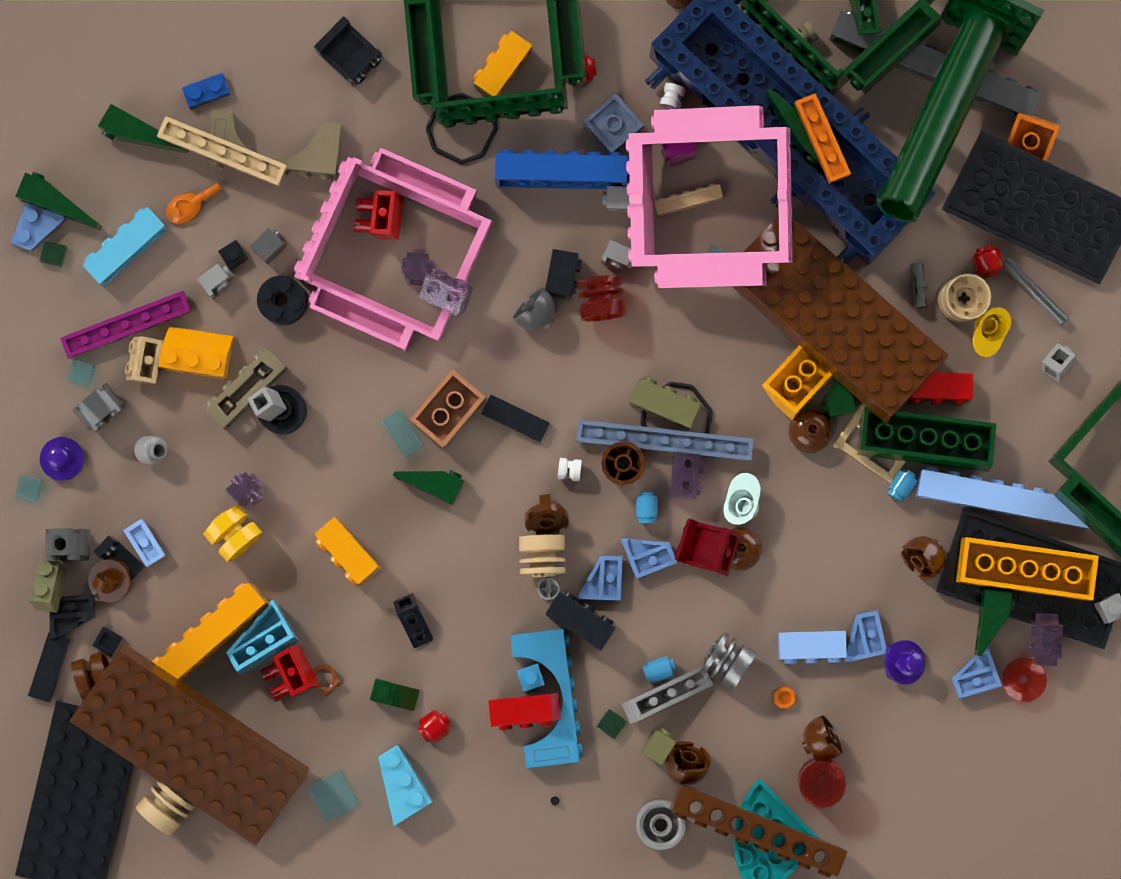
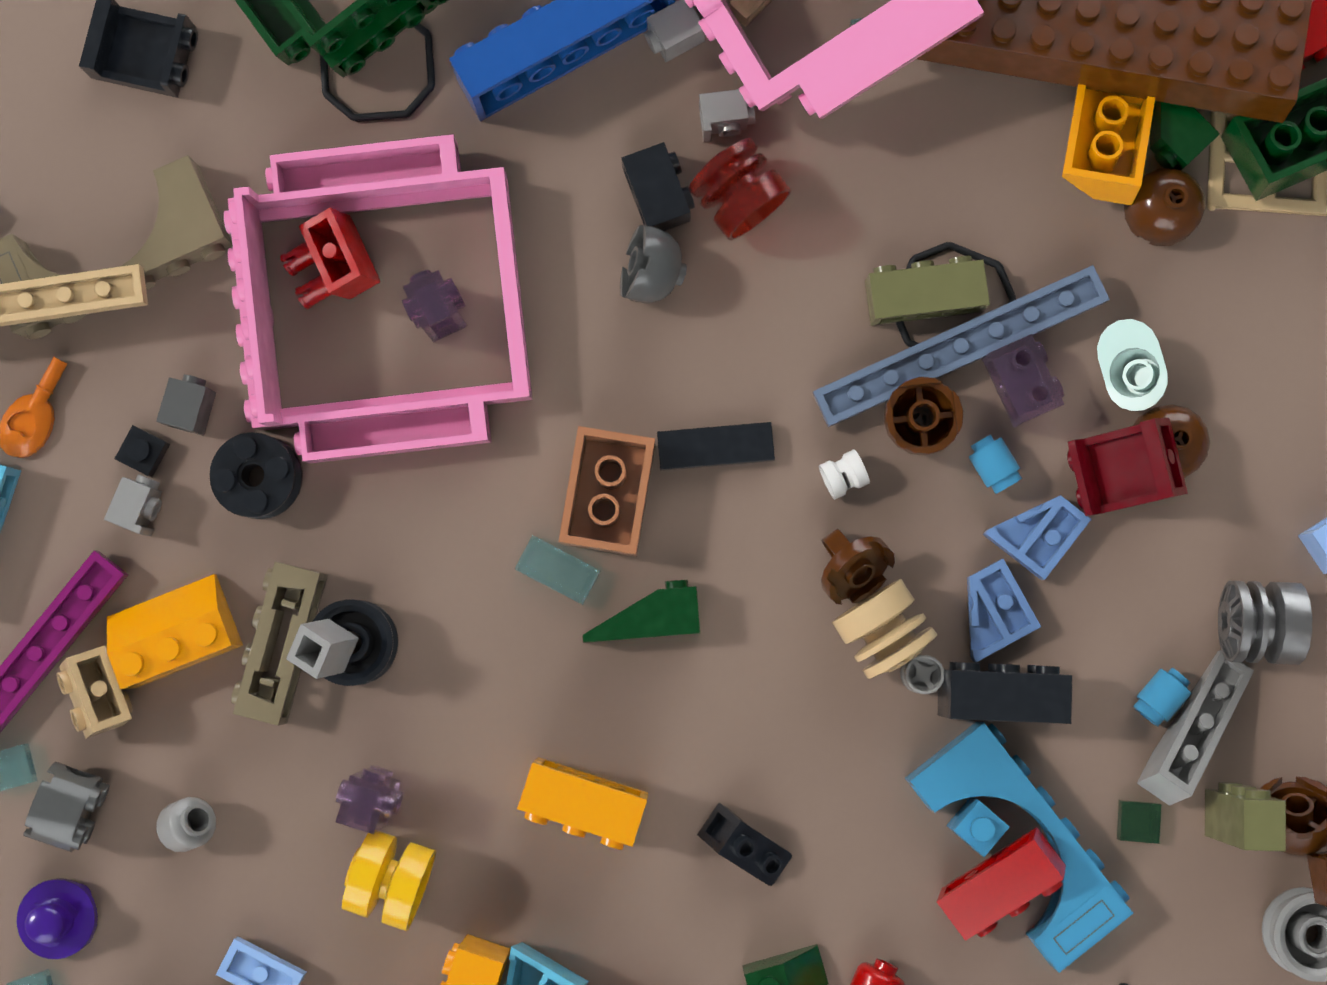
camera: 30 degrees left, 0 degrees up
(446, 292) = (499, 312): clear purple brick -> none

